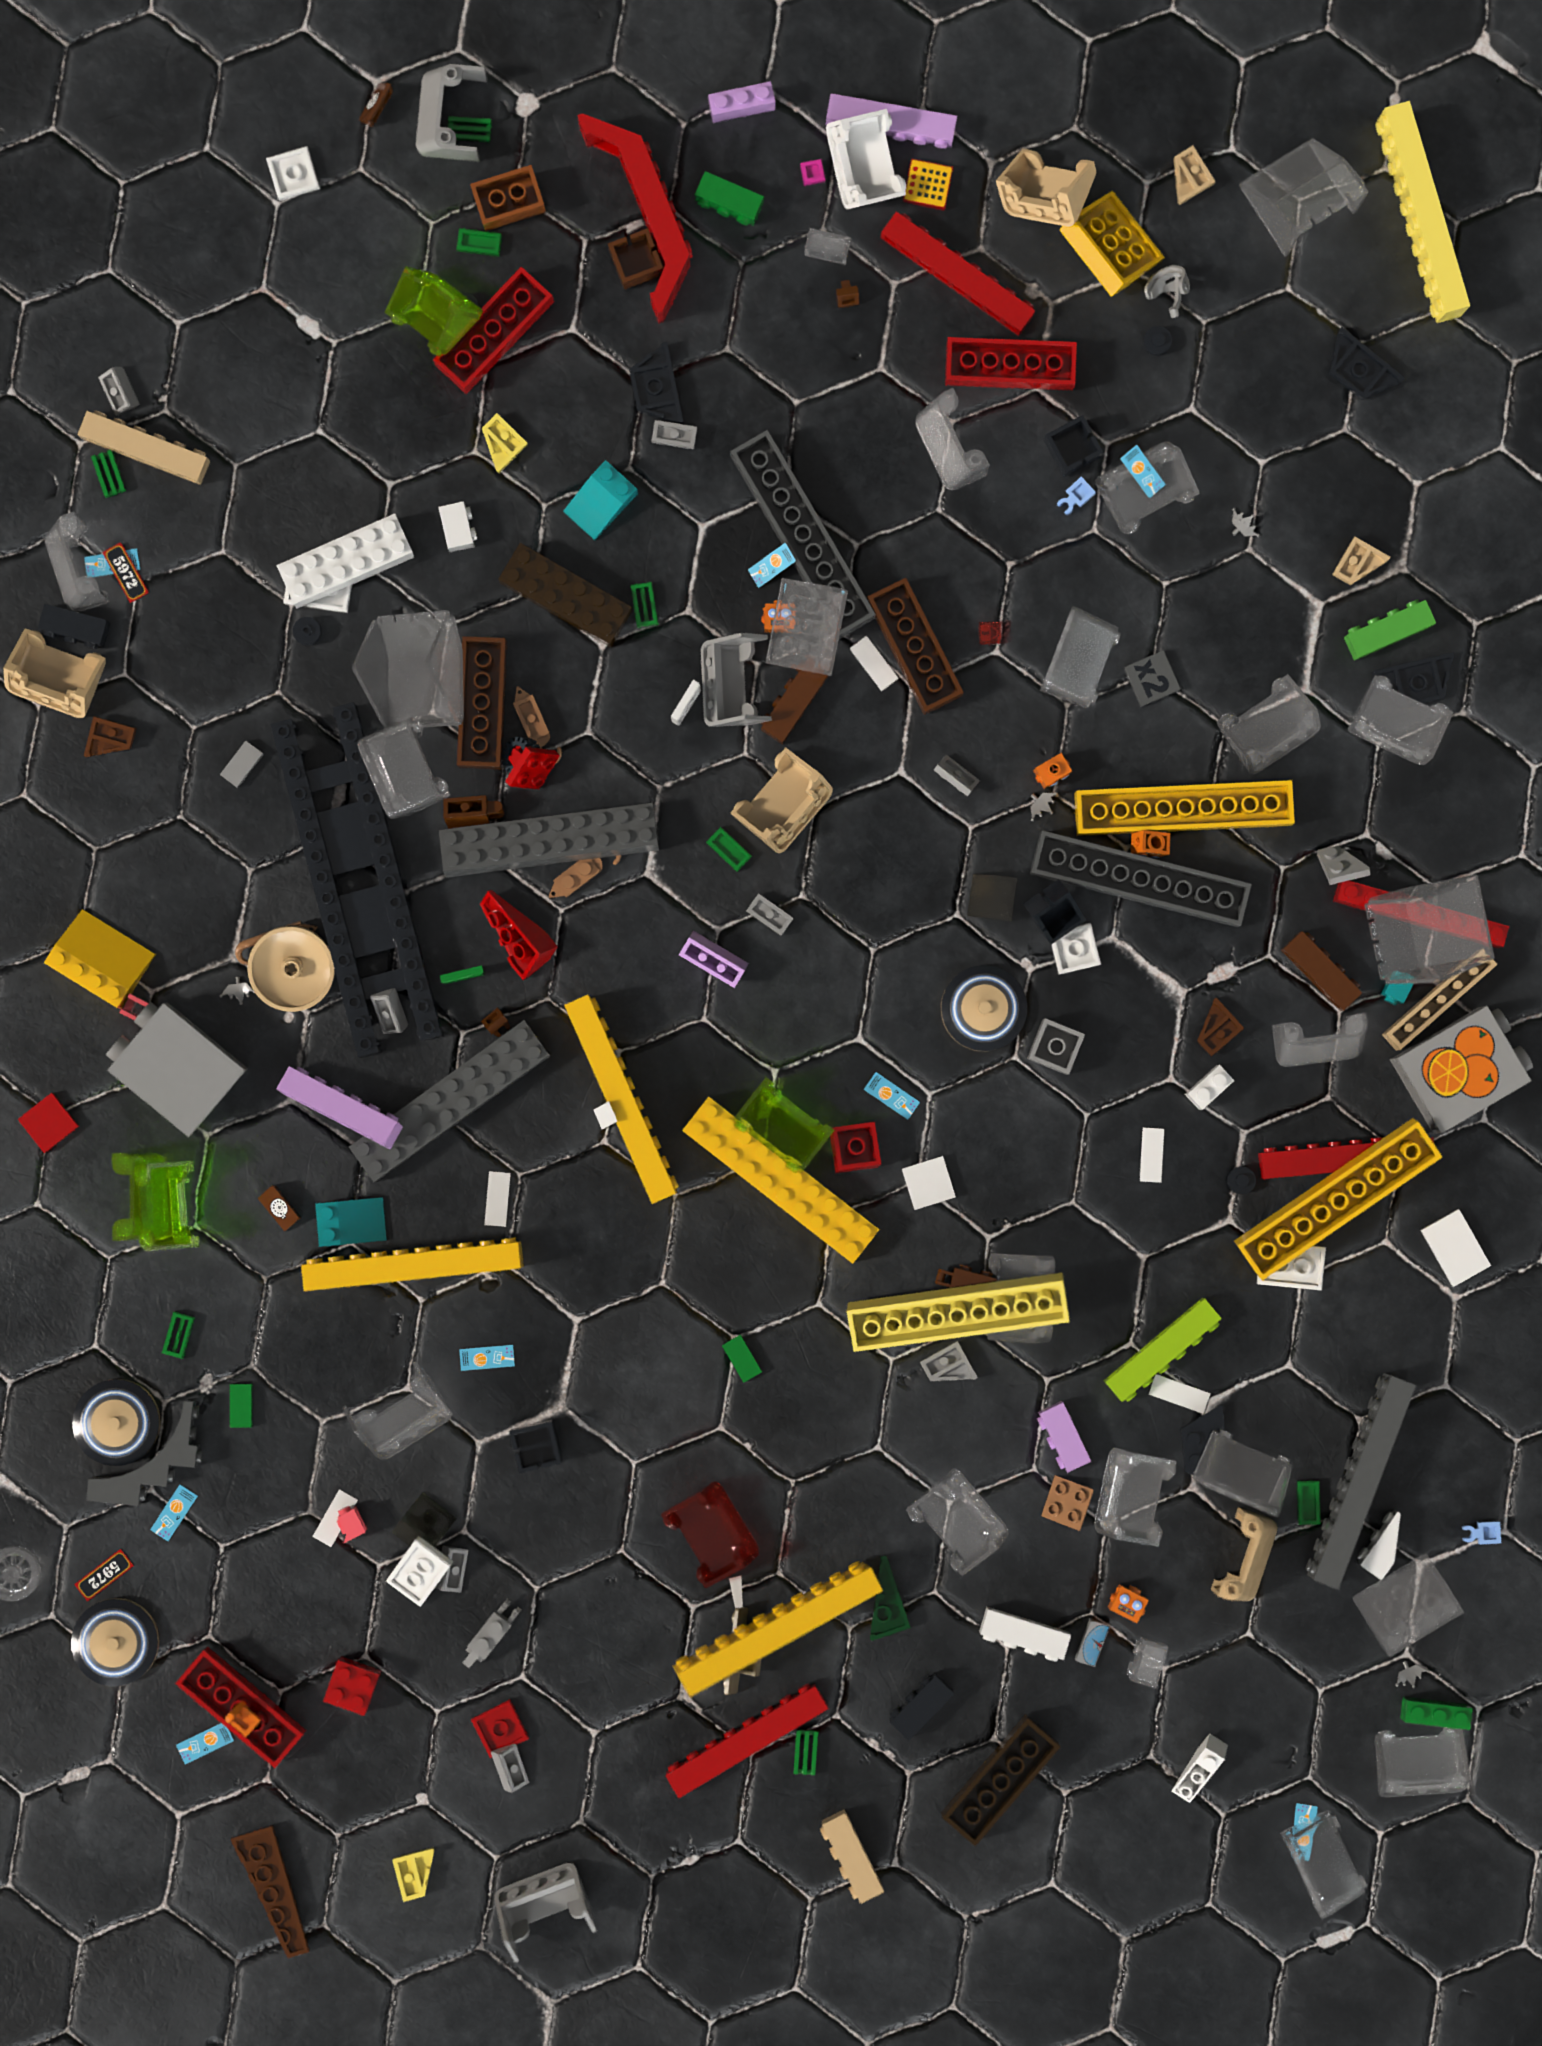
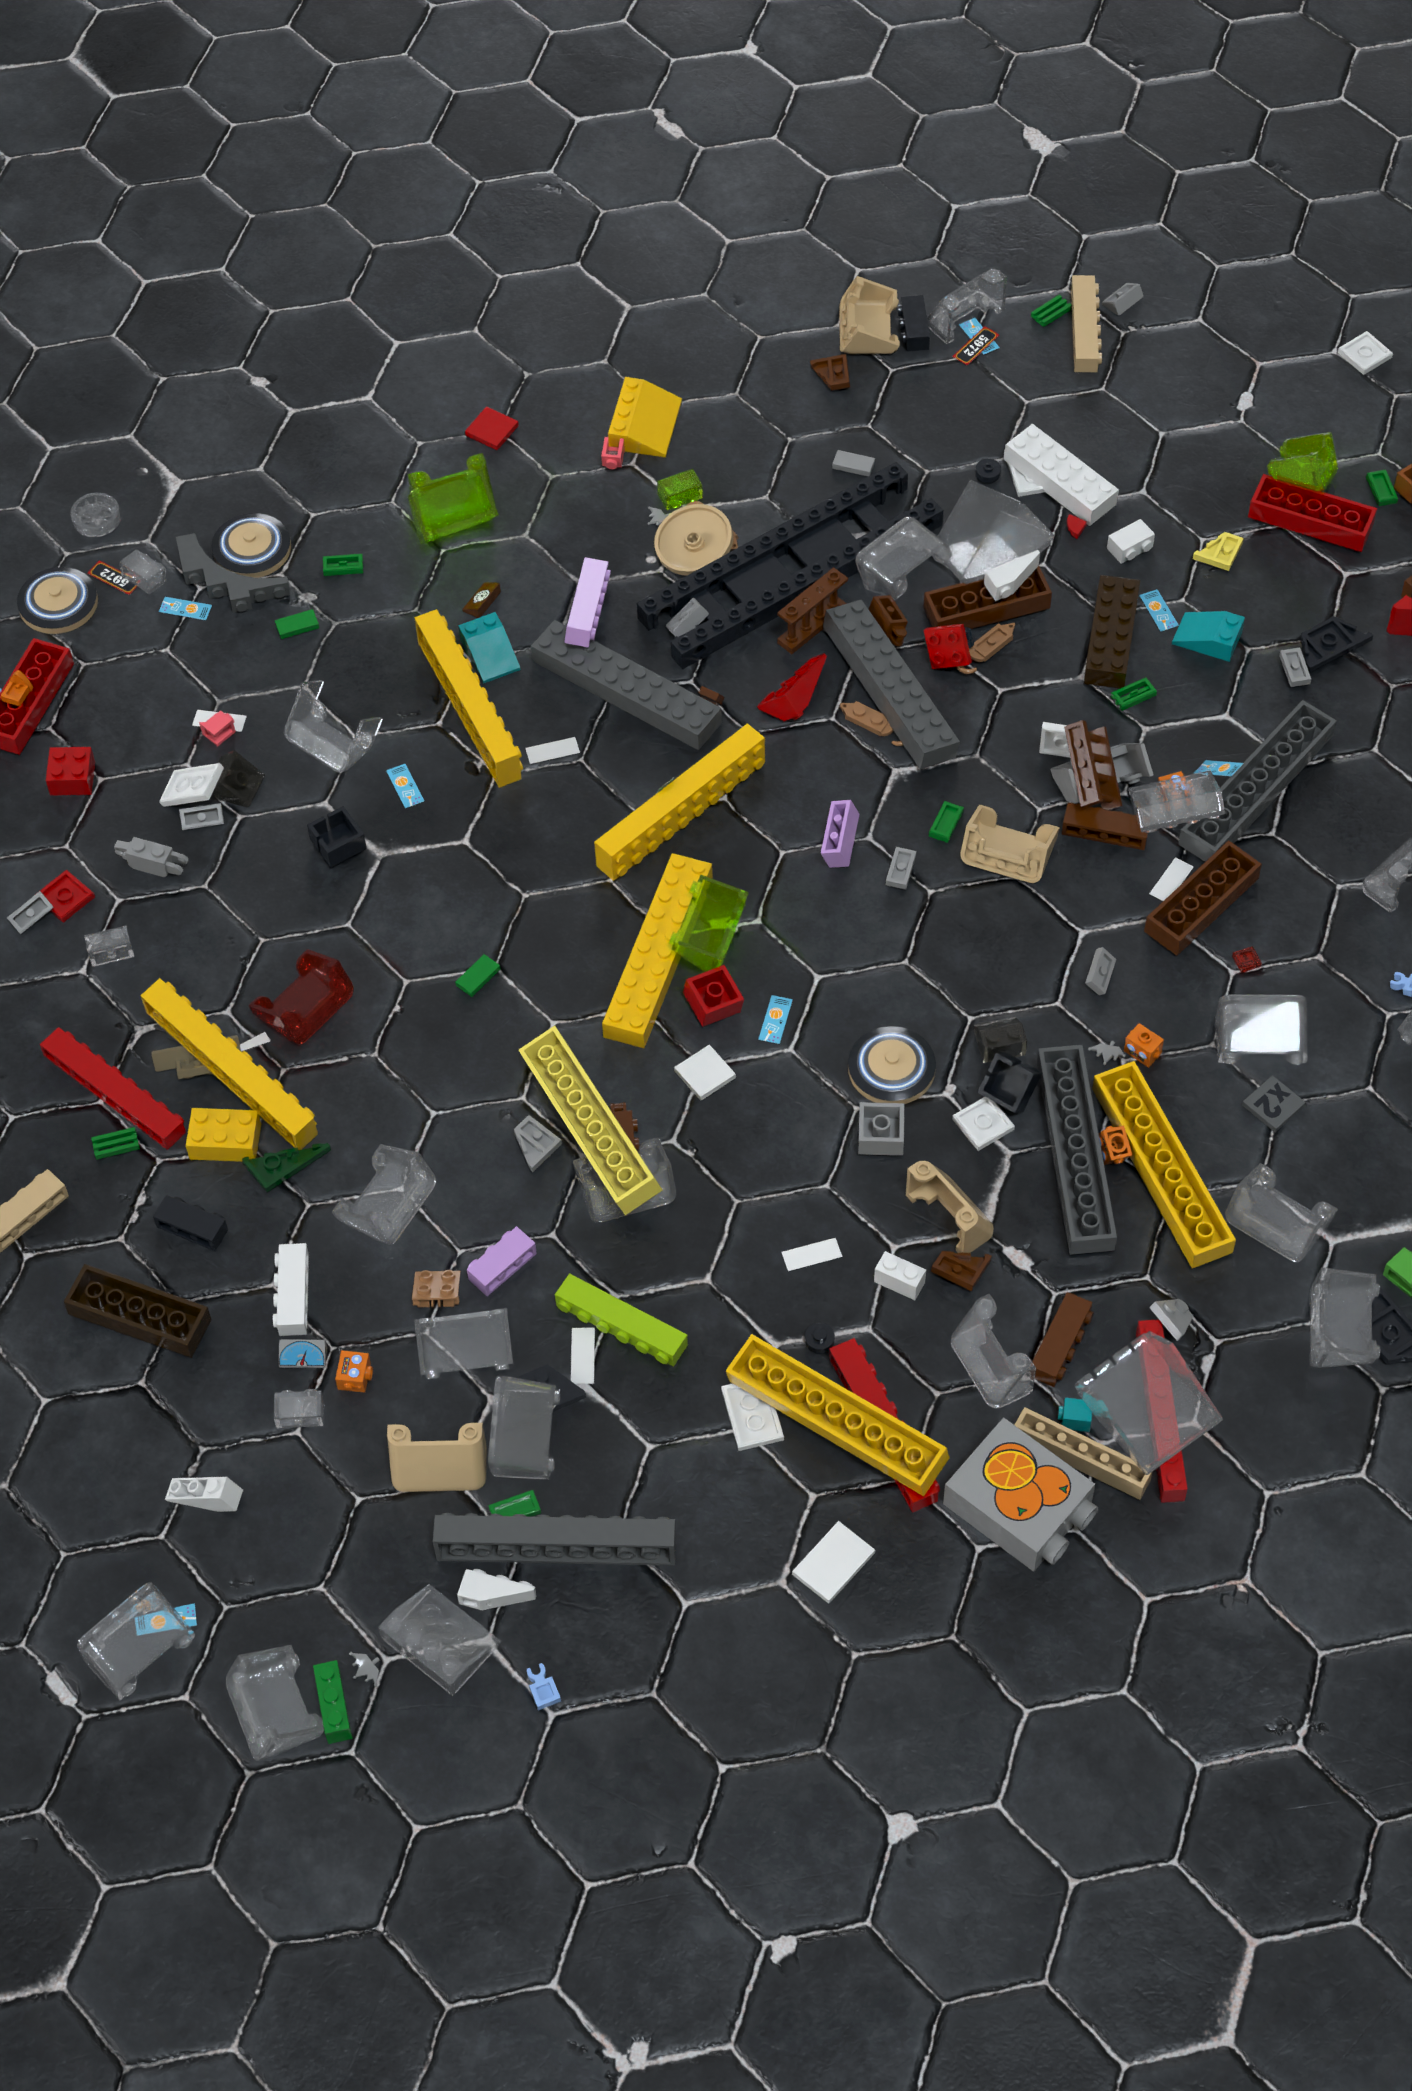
camera: 75 degrees right, 30 degrees down
(115, 1544) = (143, 571): none -> clear brick
(174, 1067) = (573, 485): light grey brick -> none
(214, 957) = (679, 489): none -> clear neon green brick
(411, 572) = (1075, 525): none -> red tile
(435, 884) = (811, 622): none -> reddish brown fence
(462, 975) = (742, 661): green tile -> none
(477, 677) = (1008, 577): none -> white slope
(548, 534) = (1159, 610): none -> medium azure sticker
(582, 1702) = (109, 946): none -> clear brick
(736, 699) = (1093, 766): none -> reddish brown fence
(838, 1651) = (223, 1134): none -> yellow brick
(1132, 1014) = (930, 1184): none -> tan windscreen

